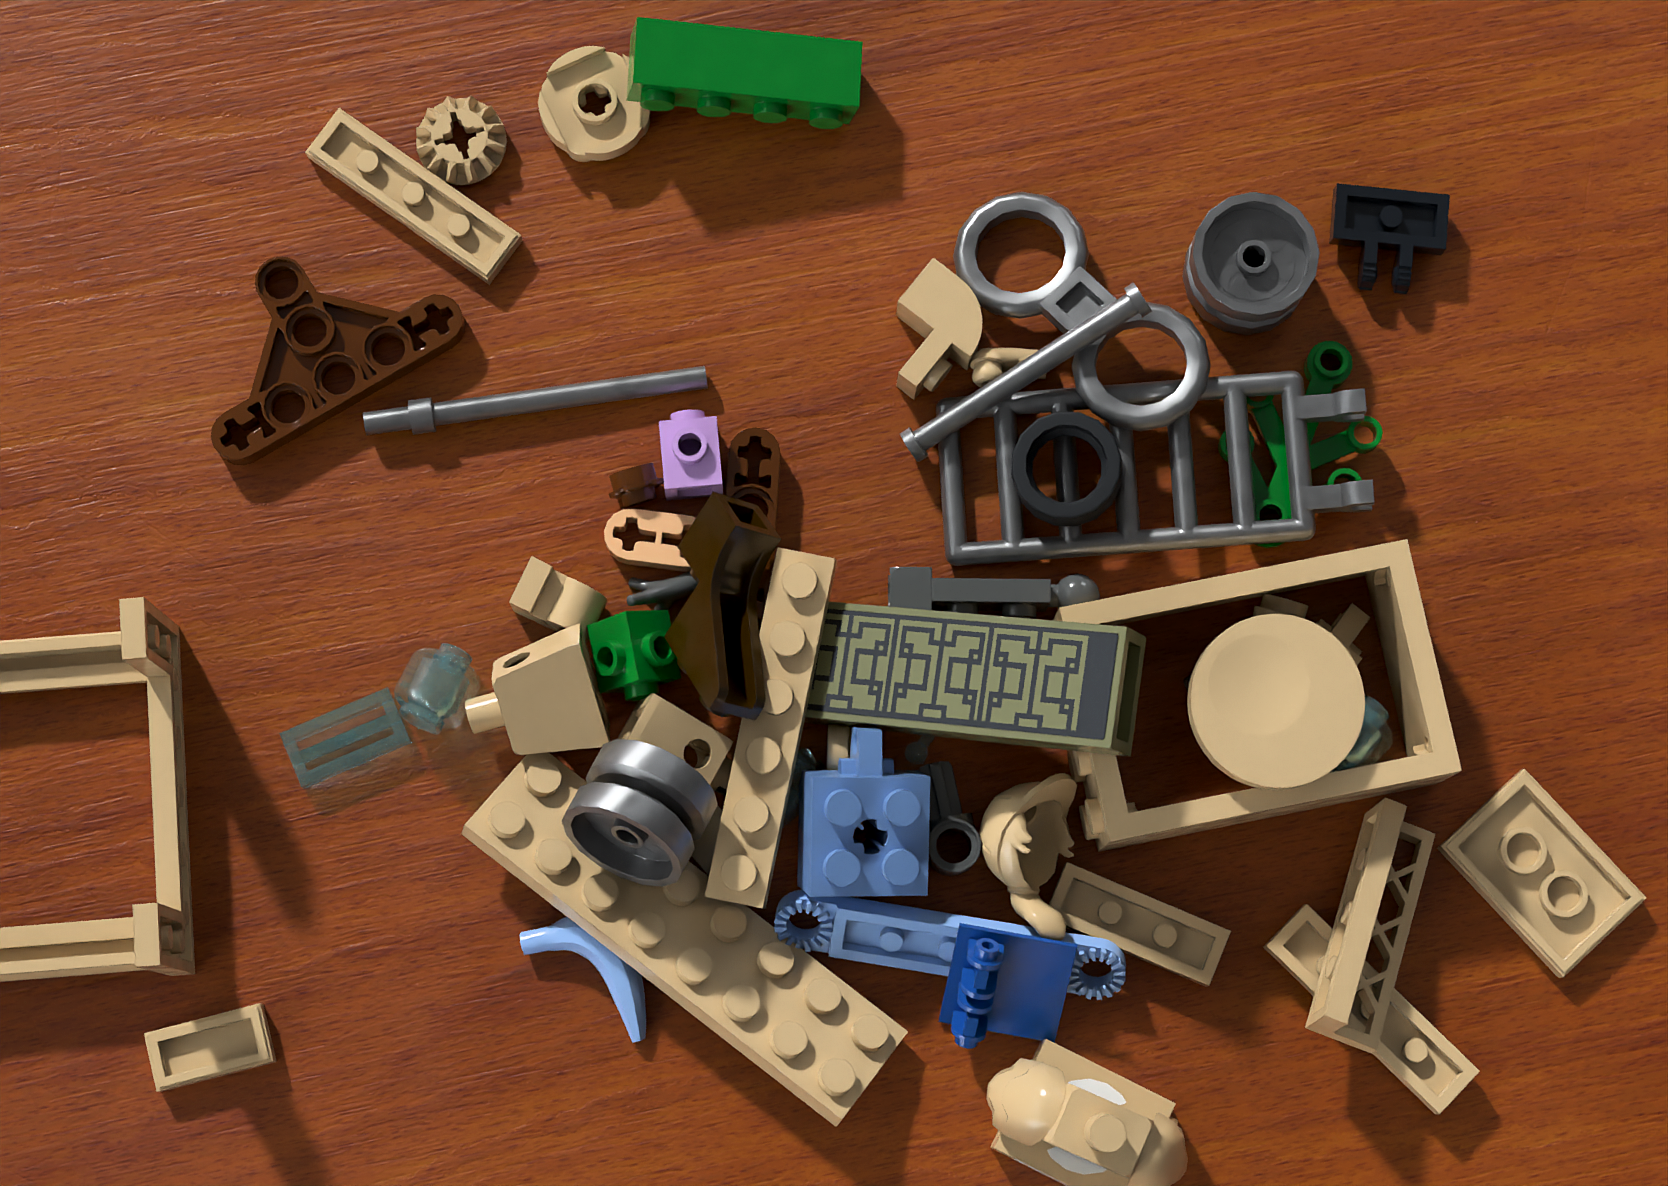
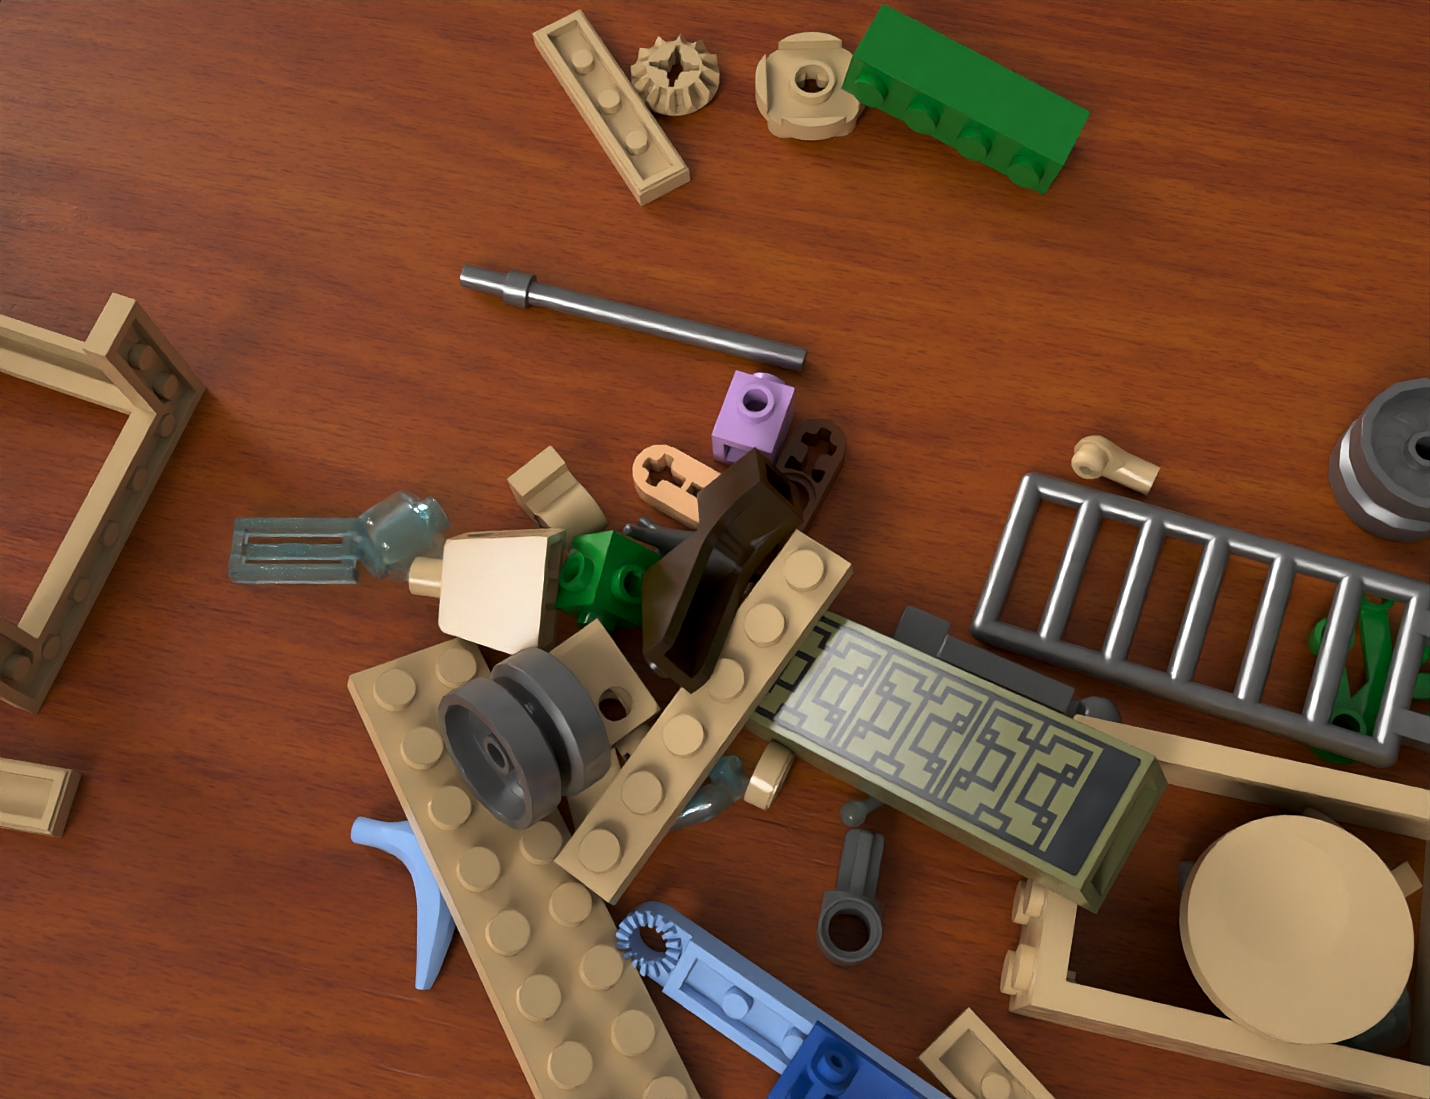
camera: 35 degrees right, 10 degrees down
(301, 369) = (431, 208): reddish brown beam -> none
(635, 485) = (687, 427): reddish brown plate -> none
(838, 801) = (801, 850): medium blue hinge -> none
(947, 317) = (1066, 394): tan brick -> none
(1022, 843) = (926, 962): tan piece -> none
(1025, 372) = (1138, 469): flat silver bar -> none
(1036, 437) = (1158, 539): black tyre -> none
(1073, 299) = (1218, 445): flat silver bar -> none

